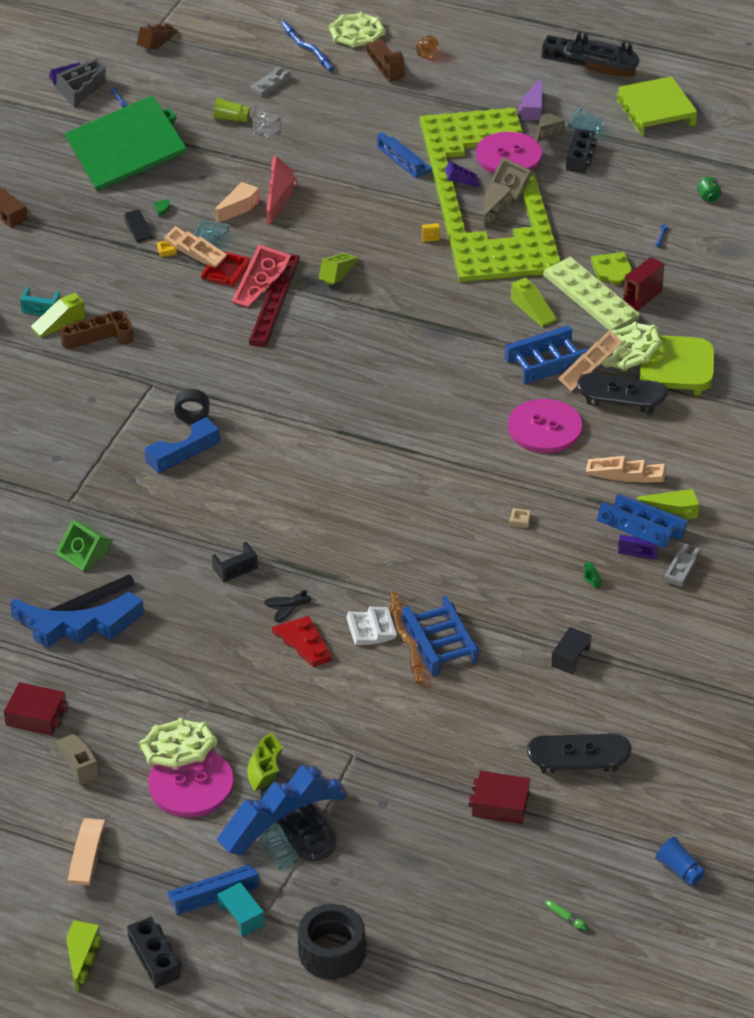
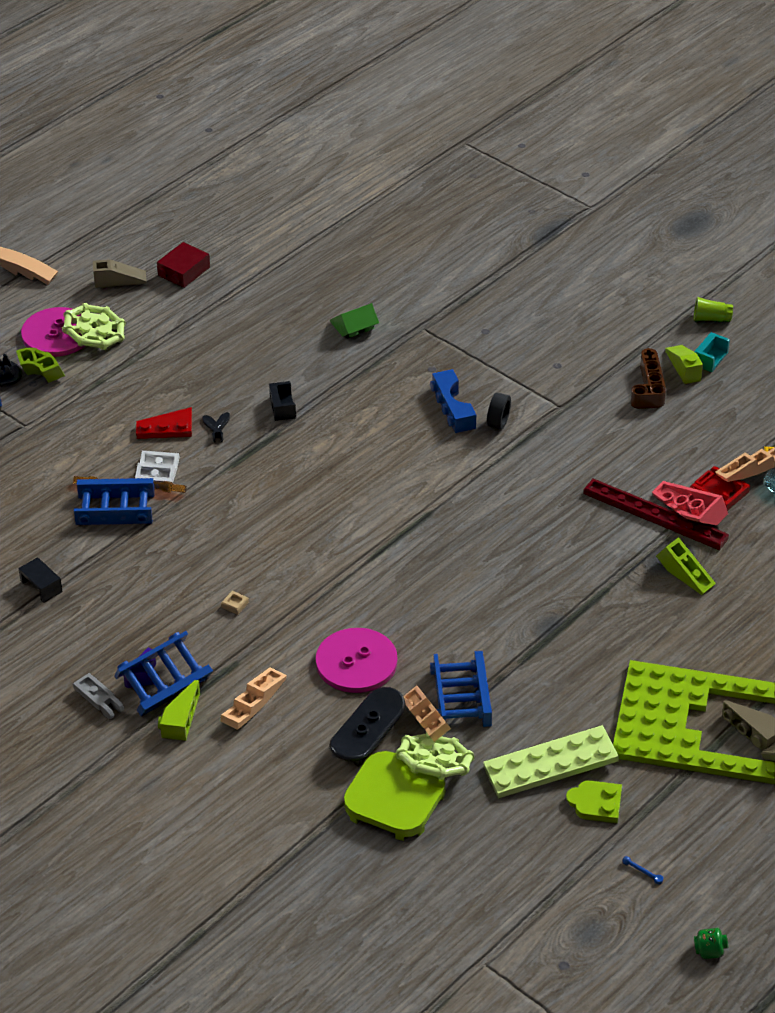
camera: 110 degrees right, 0 degrees up
(78, 625) = (259, 301): blue arch -> none
(96, 594) = (293, 316): black axle -> none
(430, 232) = (717, 658): yellow tile -> none
(530, 300) = (558, 704): lime slope -> none
(591, 575) = (125, 625): green tile -> none
(644, 283) = (536, 801): dark red brick -> none

